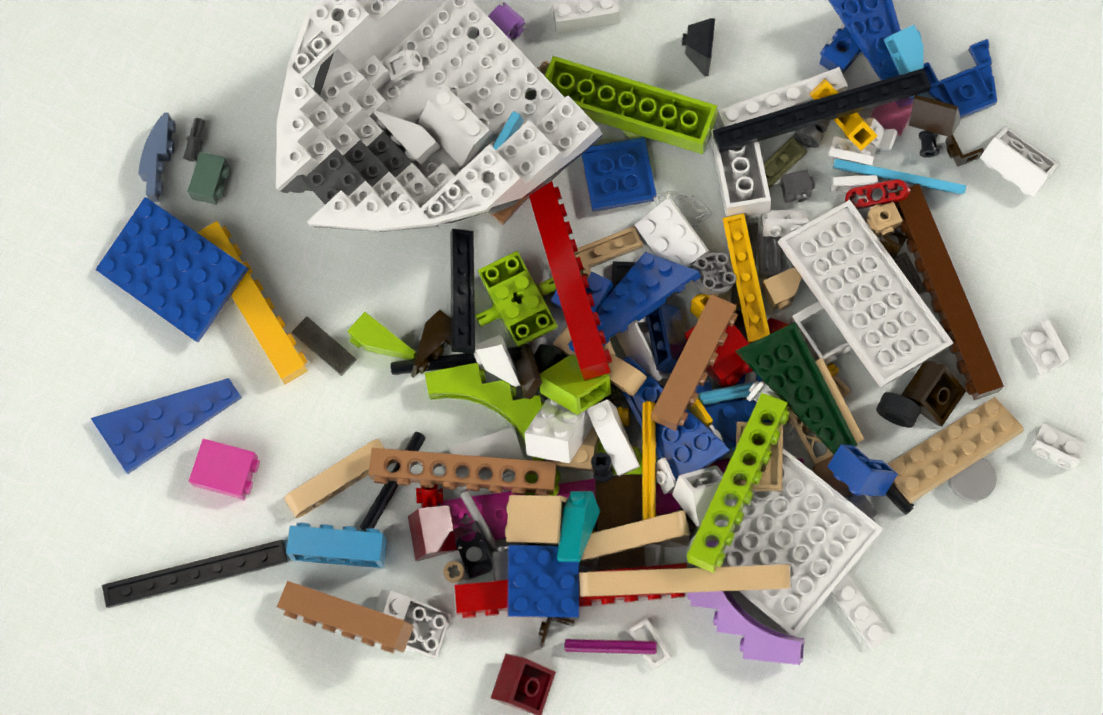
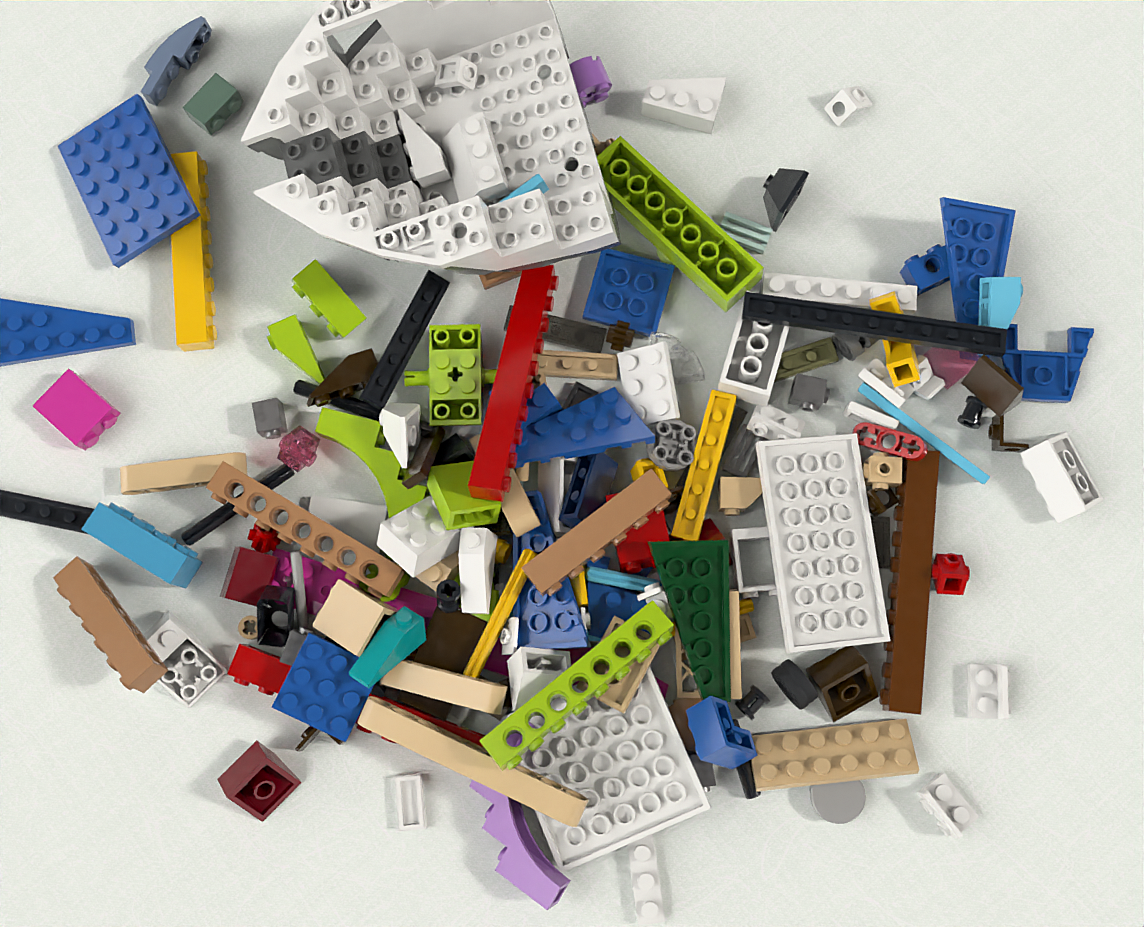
camera: 25 degrees right, 5 degrees up
(194, 140) = (221, 57): dark grey axle -> none
(324, 346) = (241, 330): clear smoke tile -> none
(384, 288) = (327, 299): none -> lime wedge
(384, 402) = (269, 418): none -> flat silver brick
(421, 414) = (298, 449): none -> clear pink brick
(585, 227) = (571, 333): none -> clear smoke tile
(610, 646) = (368, 786): magenta axle -> none
(630, 210) = (620, 336): none -> dark brown gear
(693, 79) = (747, 233): none -> light aqua tile
(872, 432) = (754, 693): none -> black bush
(972, 272) = (949, 574): none -> red brick

